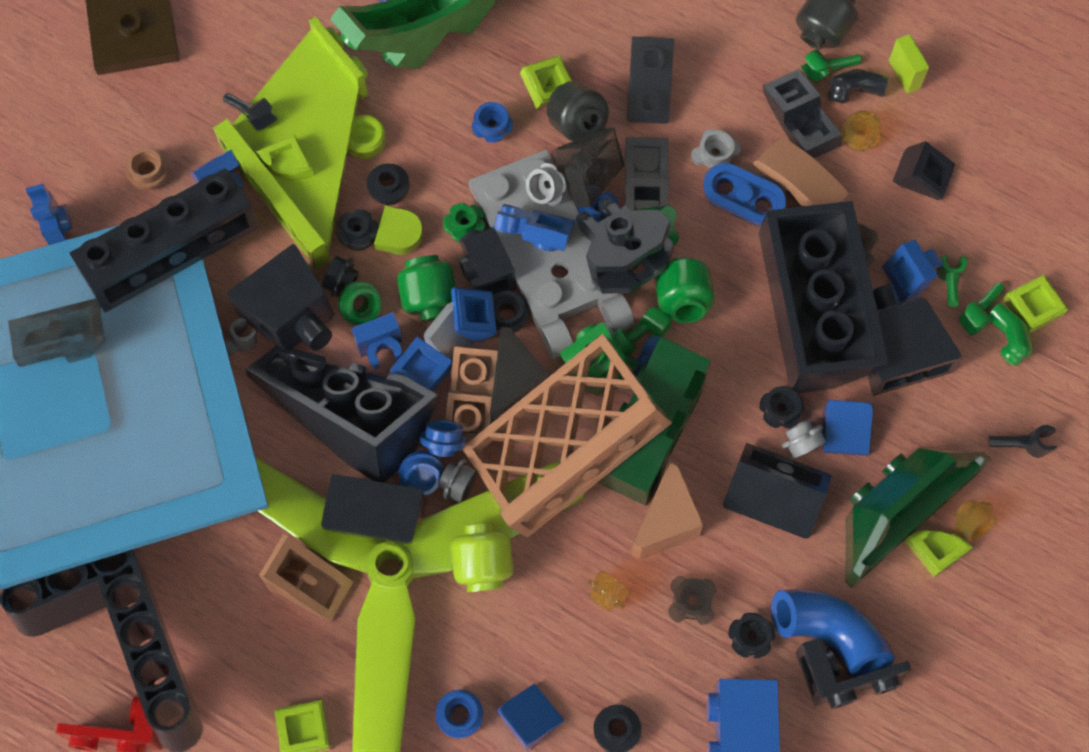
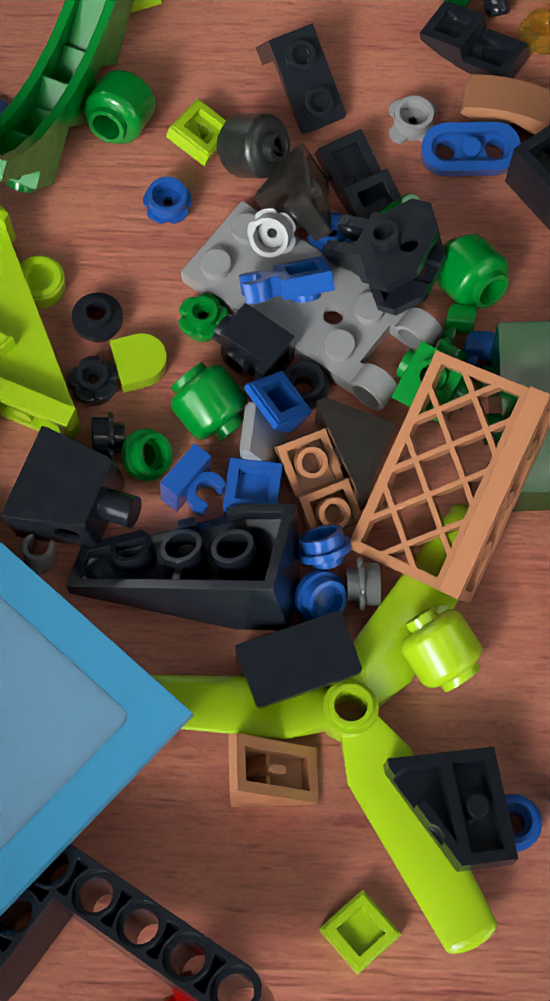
camera: 30 degrees left, 0 degrees up
(420, 676) = (458, 804): none -> black wing
(497, 34) = (119, 107): none -> green head

